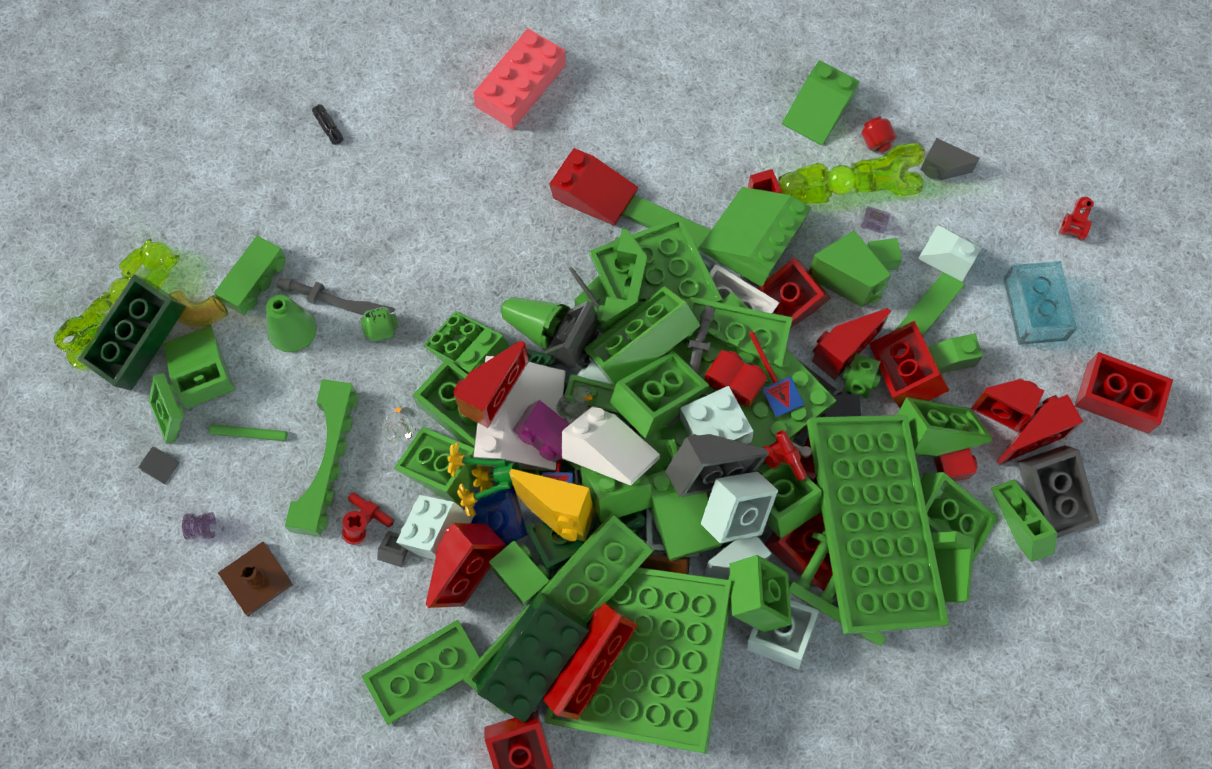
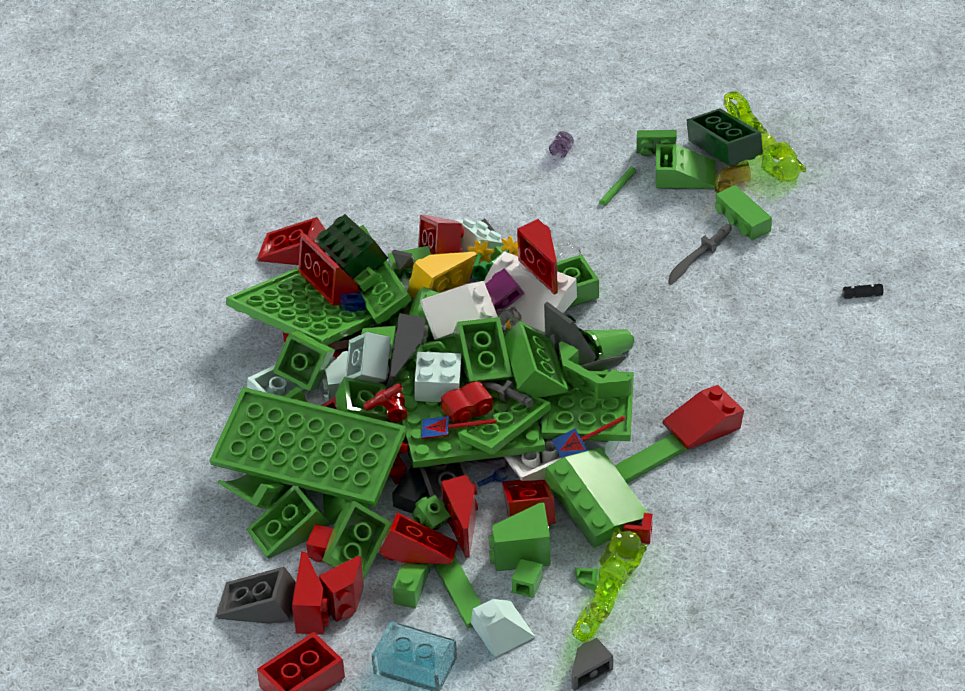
camera: 120 degrees right, 25 degrees down
(158, 465) = (620, 138): dark grey slope -> none
(255, 578) = (507, 163): reddish brown tile -> none
(289, 324) = (687, 216): bright green cone -> none
(309, 512) = (607, 228): bright green arch -> none
(355, 522) = (508, 216): red piece -> none
(379, 324) = (657, 265): bright green head -> none
(421, 672) = (387, 218): bright green plate -> none
(465, 342) = (605, 307): bright green slope -> none
(520, 78) = (840, 410): coral brick -> none
(537, 567) = (403, 259): none -> dark grey slope
(582, 603) = (366, 279): none -> bright green tile
(628, 598) = (352, 302): none -> clear blue plate
(716, 266) = (571, 443): none -> piece
(821, 102) = (704, 604): bright green slope -> none
(843, 211) = (587, 577): none -> bright green tile
(875, 220) = (565, 593): clear purple slope -> none
(879, 134) = (645, 627): red head -> none
(1026, 522) = (242, 561): bright green slope -> none

